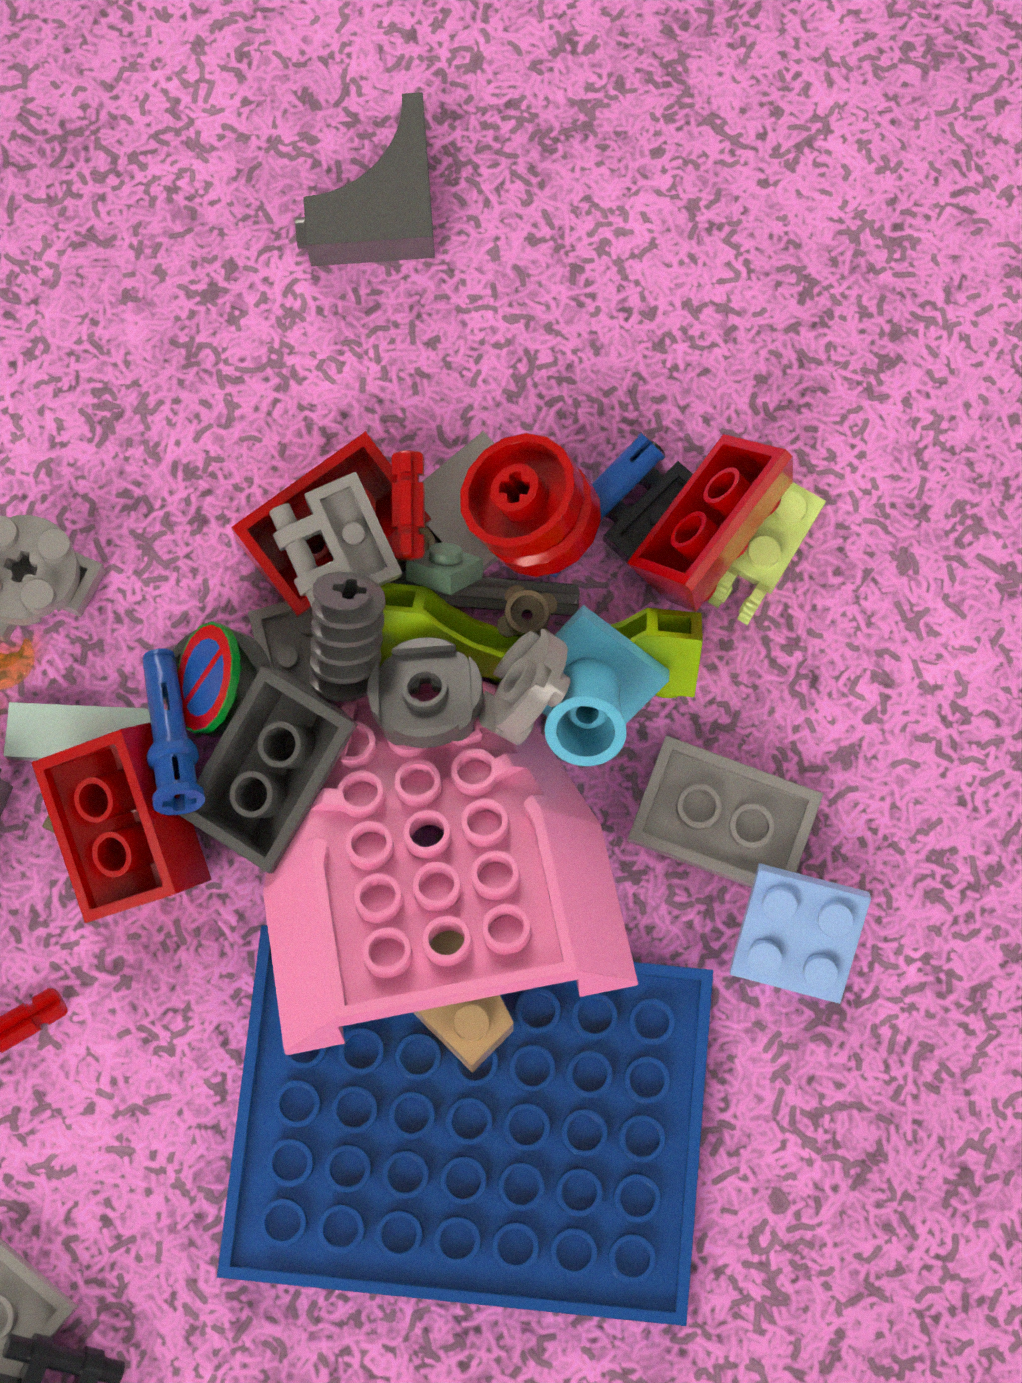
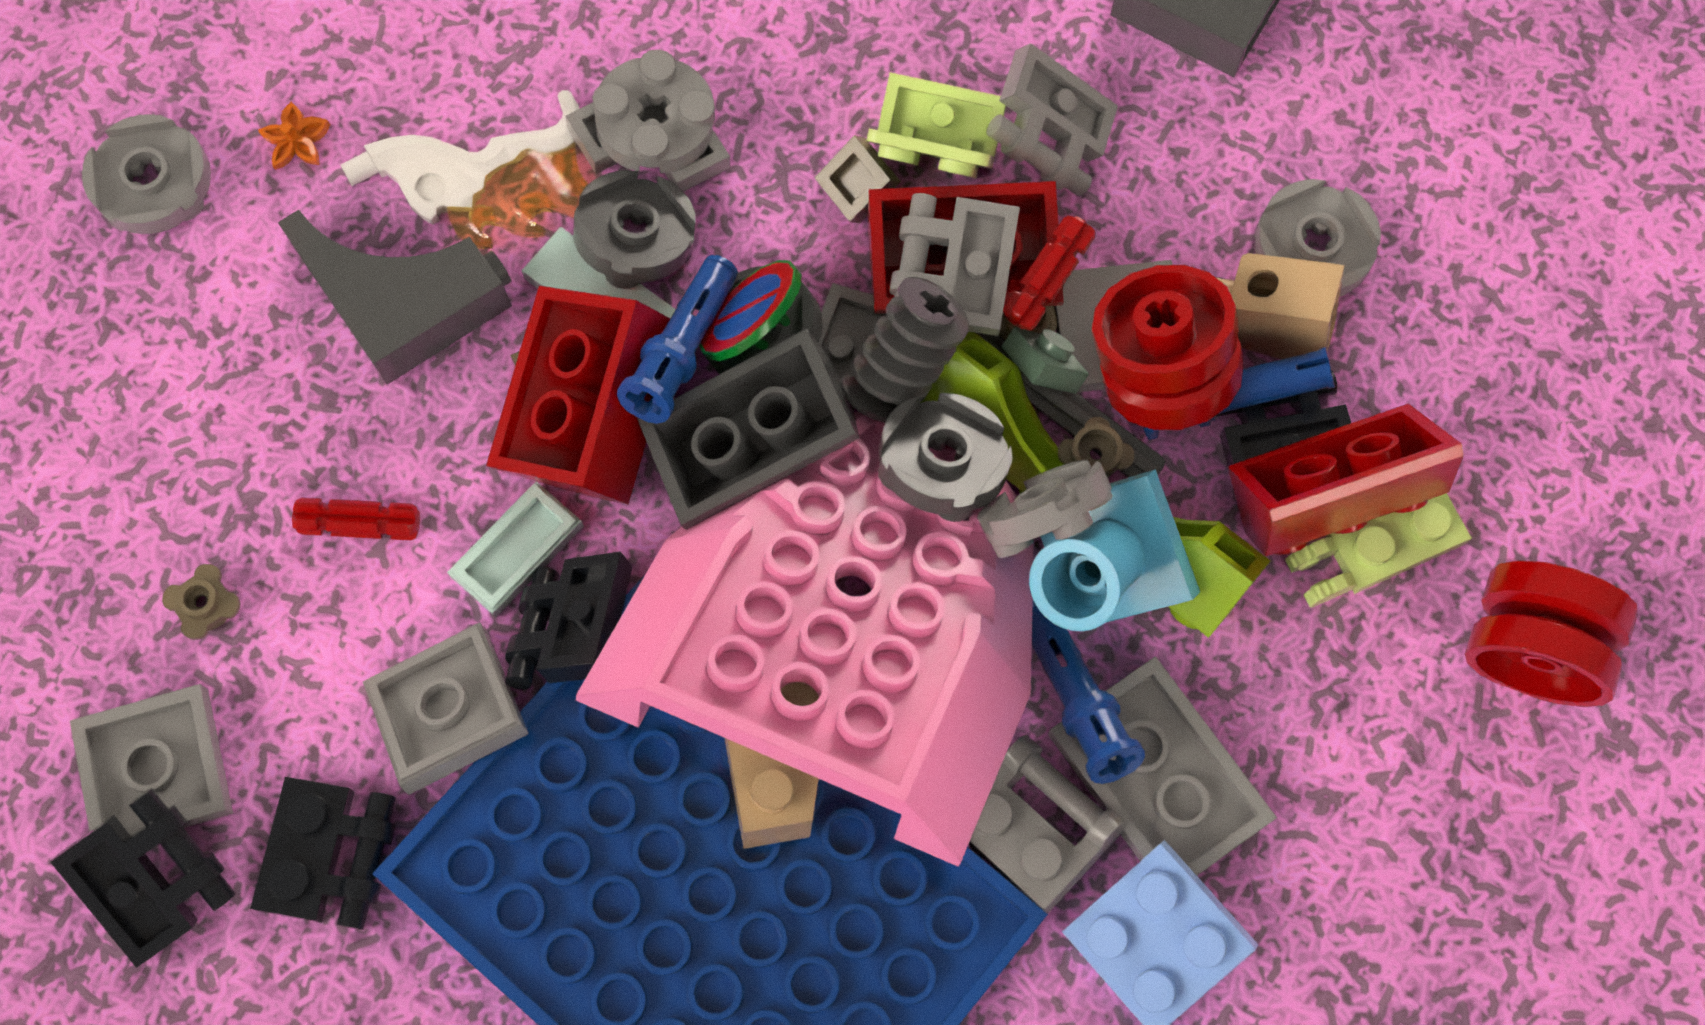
camera: 35 degrees right, 5 degrees down
(71, 695) = (629, 256): none -> dark grey plate
(149, 968) = (514, 548): none -> light aqua tile
(152, 1294) = (306, 847): none -> black plate
(183, 1122) = (444, 708): none -> light grey plate
(209, 519) = (852, 174): none -> plate
(243, 991) = (580, 615): none -> black plate
(245, 440) = (937, 123): none -> yellowish green bracket
(321, 366) = (1060, 105): none -> light grey plate
(567, 321) = (1340, 214): none -> light grey plate
(587, 416) = (1285, 304): none -> tan torso
(644, 806) = (1087, 708): none -> blue pin
(668, 931) = (1029, 847): none -> light grey plate
(925, 537) = (1552, 633): none -> red wheel

